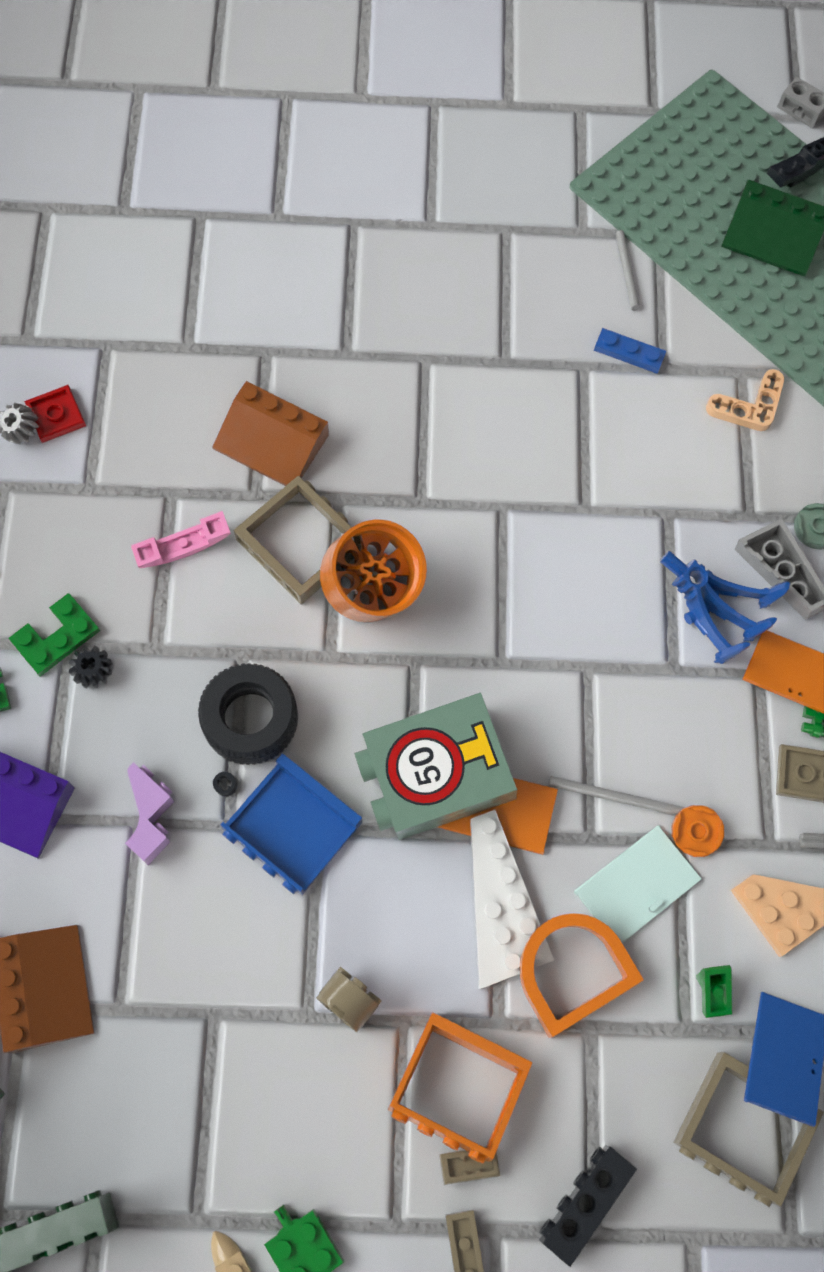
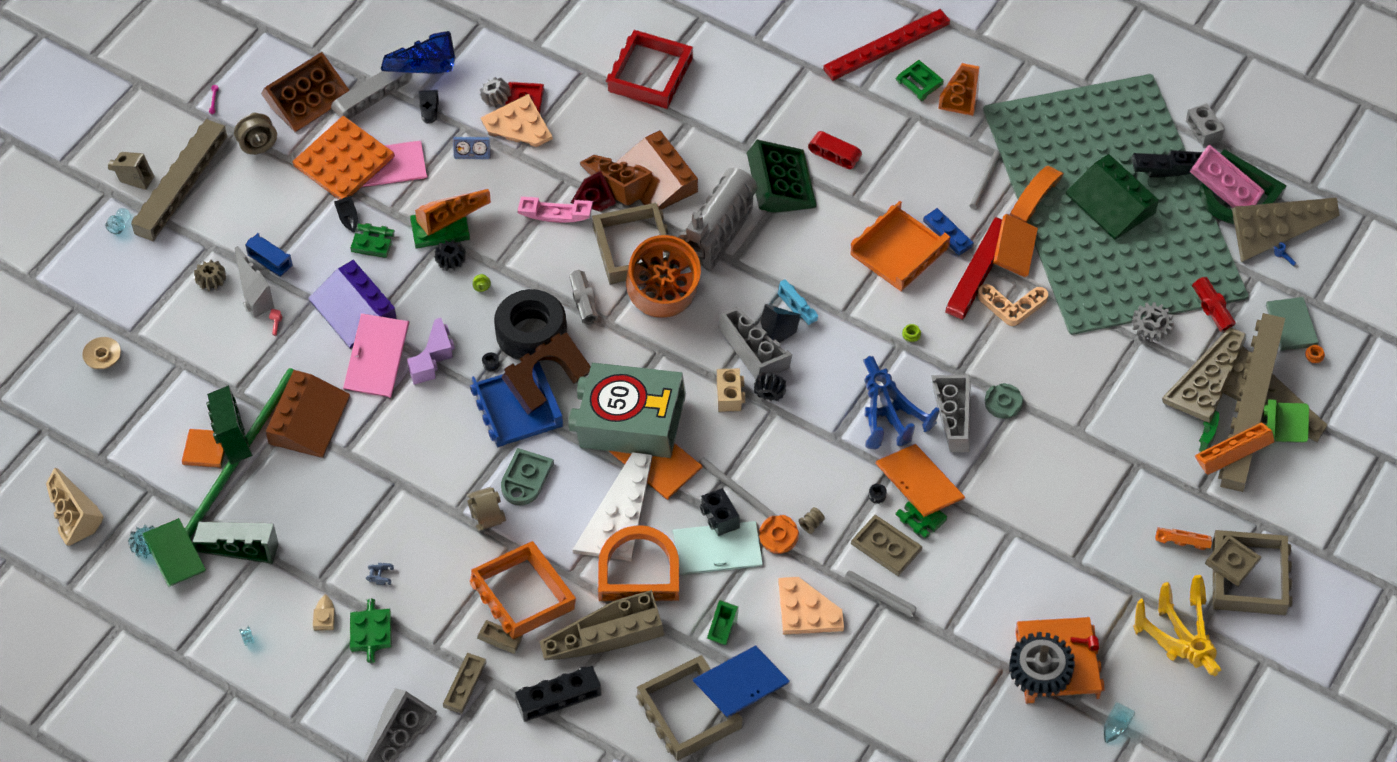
camera: 35 degrees right, 15 degrees down
(31, 510) = (471, 147): none -> slope
(51, 616) = (446, 211): none -> orange wedge
(68, 449) = (518, 123): none -> light nougat plate
(84, 854) = (379, 348): none -> bright pink container
(151, 684) = (481, 283): none -> lime plate
(182, 343) = (642, 93): none -> red window
(214, 496) = (595, 189): none -> dark red slope
(237, 465) = (624, 181): none -> dark orange wedge
(270, 1171) = (380, 567): none -> sand blue piece
(282, 792) = (560, 350): none -> reddish brown arch
(284, 639) = (583, 297): none -> light grey piece
(360, 918) = (526, 475): none -> sand green tile
(382, 457) = (721, 216): none -> light grey piece
(412, 374) = (780, 177): none -> dark green slope
(421, 159) = (886, 44): none -> red plate
(450, 310) = (835, 150): none -> red beam
(488, 178) = (922, 75): none -> green plate
(518, 602) = (752, 344): none -> light grey wedge
(520, 675) = (729, 385): none -> tan brick
(525, 559) = (779, 322): none -> black slope
(529, 521) = (796, 302): none -> medium azure hinge
(552, 175) = (961, 91): none -> orange wedge
(572, 646) = (770, 386): none -> black gear
(592, 1077) = (607, 629): none -> dark tan wedge
(593, 396) = (898, 247): none -> orange panel
(622, 836) = (720, 512): none -> black brick
(677, 490) = (914, 329): none -> lime plate
(693, 380) = (975, 273): none -> red beam
(696, 261) = (1034, 193): none -> orange slope
(715, 333) = (1015, 245): none -> orange tile
(722, 791) = (811, 520): none -> dark tan bush
(770, 710) = (880, 498): none -> black bush

